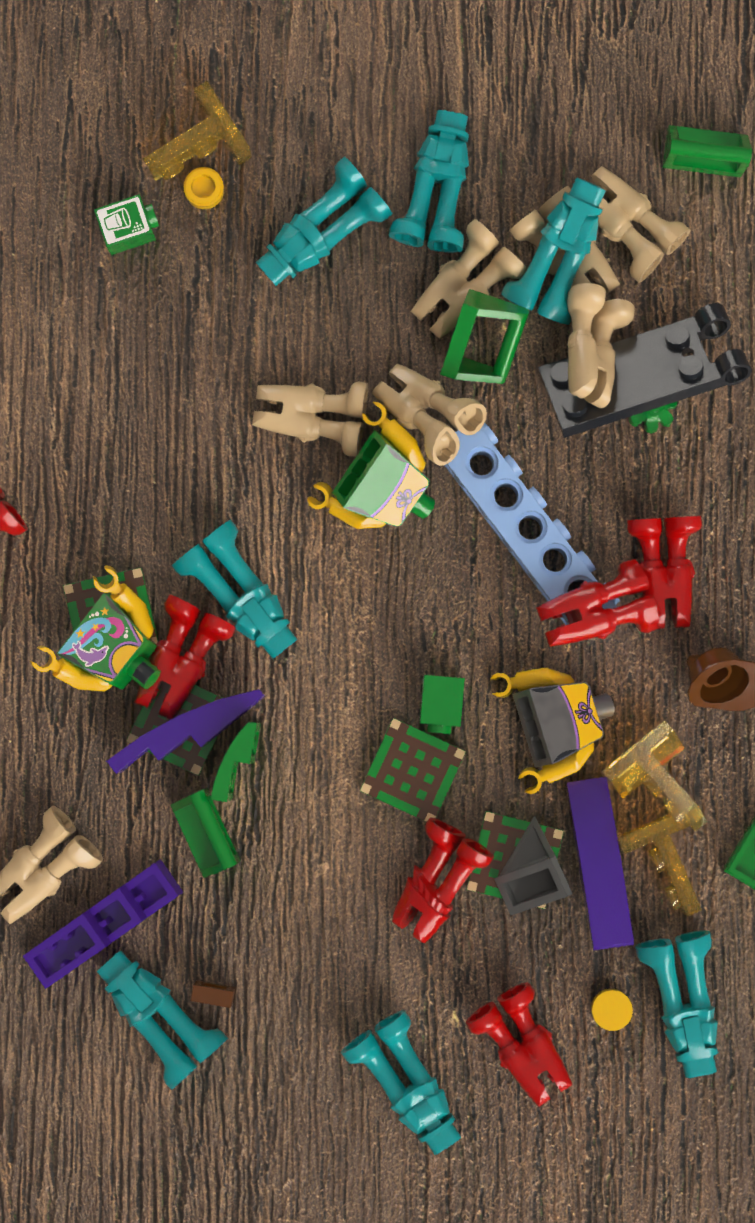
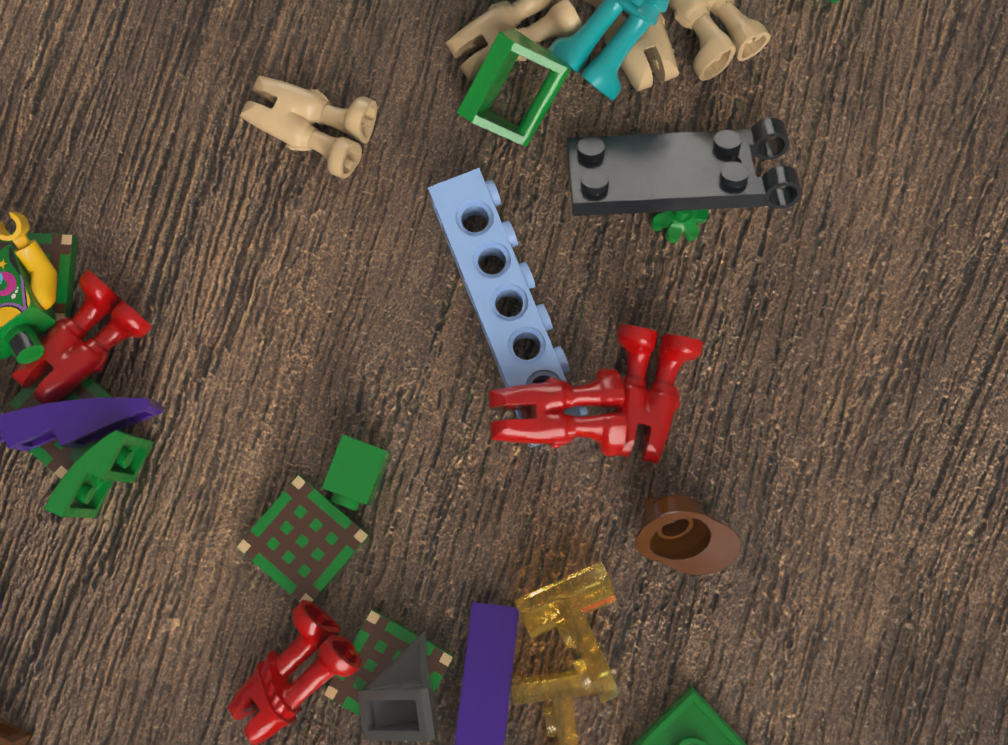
camera: 10 degrees right, 5 degrees down
(205, 833) = (50, 549): green tile -> none
(257, 611) = (179, 315): teal piece -> none
(382, 480) = (359, 208): torso -> none
(410, 411) = (432, 175): tan piece -> none
(557, 720) = (480, 528): torso -> none
(589, 346) = (628, 120): tan piece -> none

